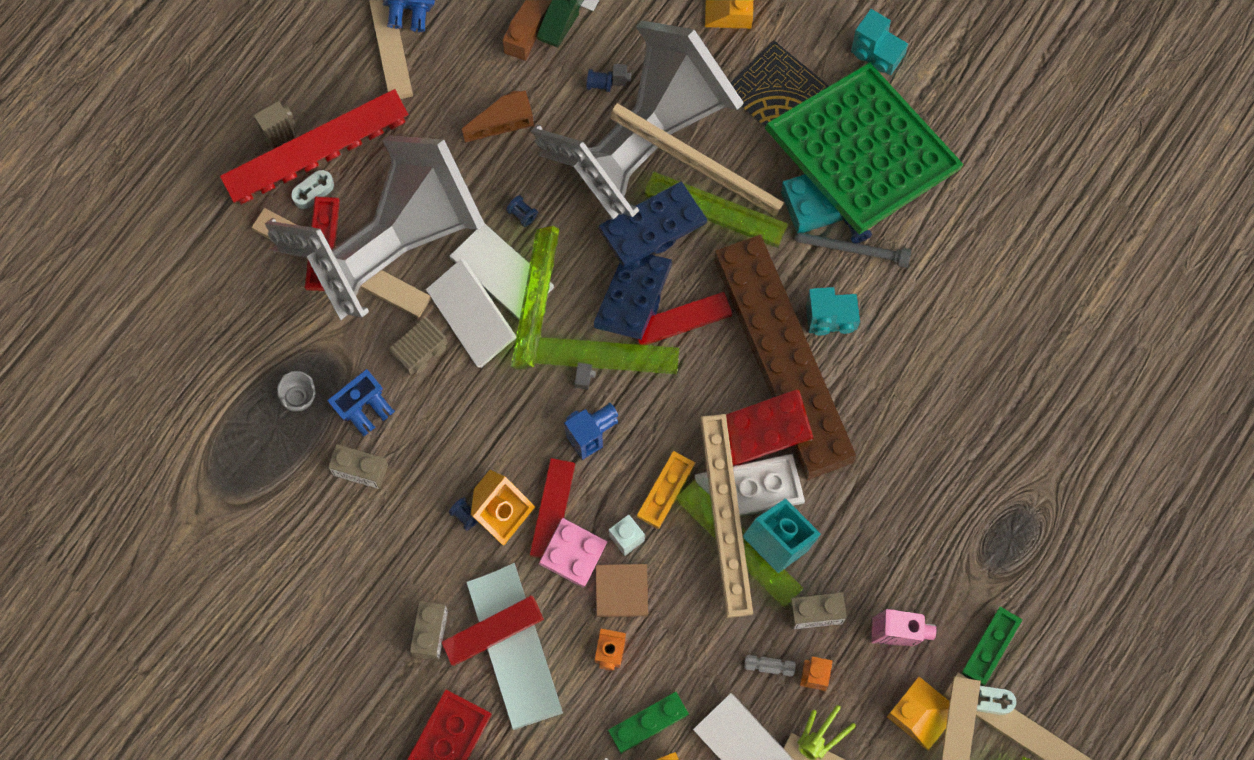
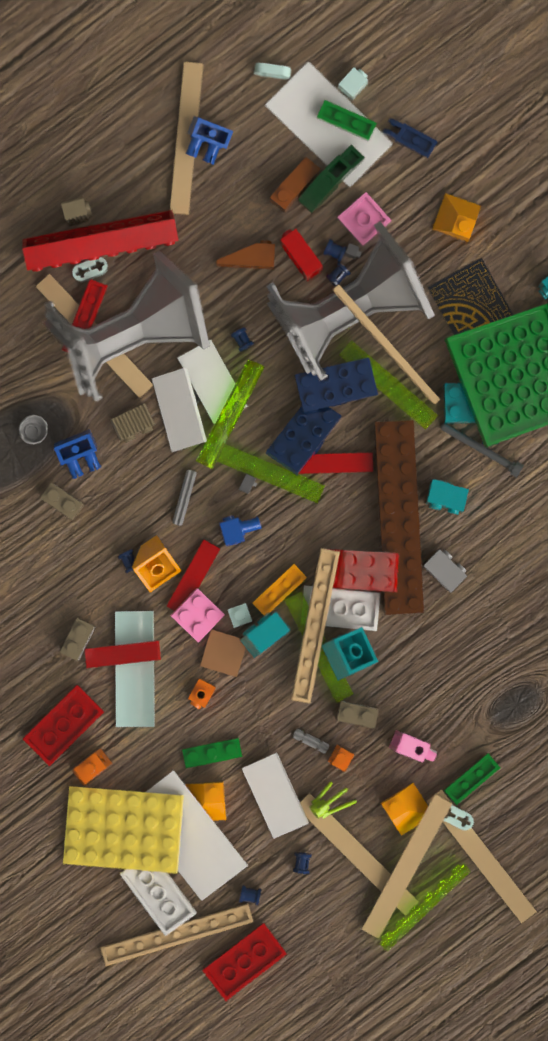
camera: 20 degrees right, 15 degrees up
(510, 416) = (184, 497): none -> light grey axle
(561, 92) = (301, 254): none -> red window
(613, 97) = (339, 269): none -> dark blue bush
(619, 37) = (361, 217): none -> bright pink plate
(666, 545) = (263, 636): none -> teal brick
(863, 400) = (445, 570): none -> light grey brick

